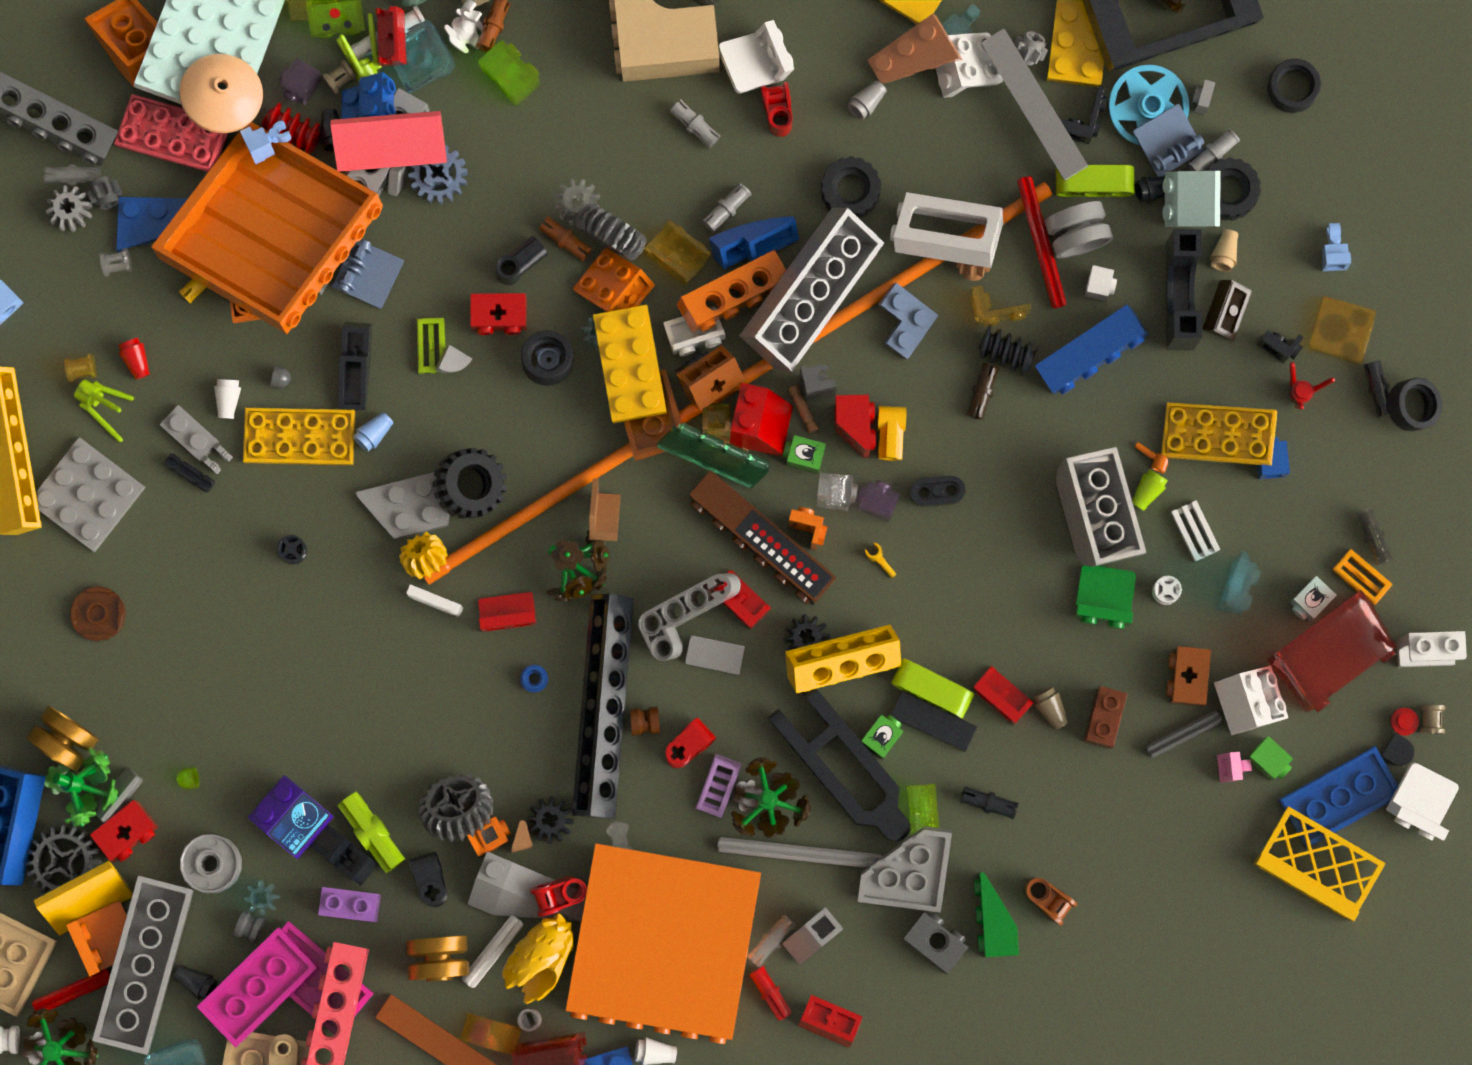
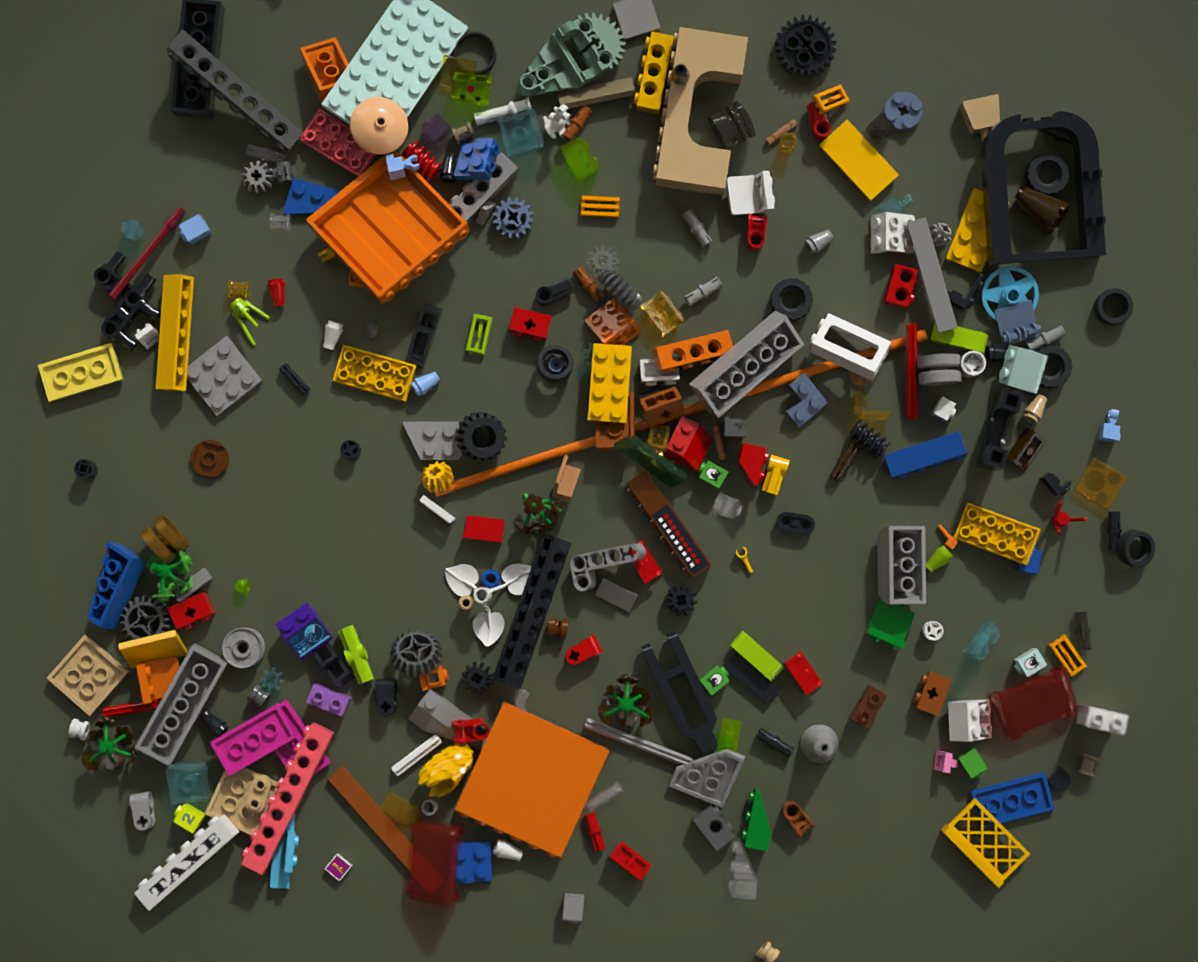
camera: 20 degrees right, 5 degrees up
(194, 437) = (303, 356): light grey hinge -> none
(363, 66) = (482, 130): lime plant -> none
(368, 273) = (449, 274): sand blue hinge -> none
(388, 141) = (484, 188): coral tile -> none
(391, 36) = (505, 115): red hinge -> none
(437, 958) = (377, 751): pearl gold wheel -> none
(452, 360) = (490, 349): light grey tile -> none
(496, 688) = (462, 581): none -> white plant
(503, 714) = (462, 605): none -> tan pin
(522, 838) = (456, 685): medium nougat slope -> none
(552, 119) = (601, 206): none -> light orange tile
(727, 763) = (604, 669): lavender slope -> none
(753, 240) = (715, 319): blue slope -> none
(805, 520) = (701, 520): orange bracket -> none
(812, 936) = (633, 801): light grey slope -> none
(843, 658) = (702, 621): yellow brick -> none
(878, 500) = (753, 518): clear purple brick -> none
(917, 50) = (860, 217): nougat wing -> none
(990, 131) = (897, 285): none -> red brick
(996, 1001) = (744, 879): none -> clear slope
(1043, 796) = (814, 738): none -> light grey cone
(1051, 707) = (833, 689): dark tan cone -> none
(1121, 211) = (972, 364): none -> white wheel
(1183, 733) = (917, 730): dark grey axle -> none
(1203, 96) = (1049, 298): light grey plate -> none
(1204, 525) = (963, 596): white tile -> none
(1404, 721) = (1069, 761): red plate -> none
(1423, 801) = (1066, 819): white bracket -> none

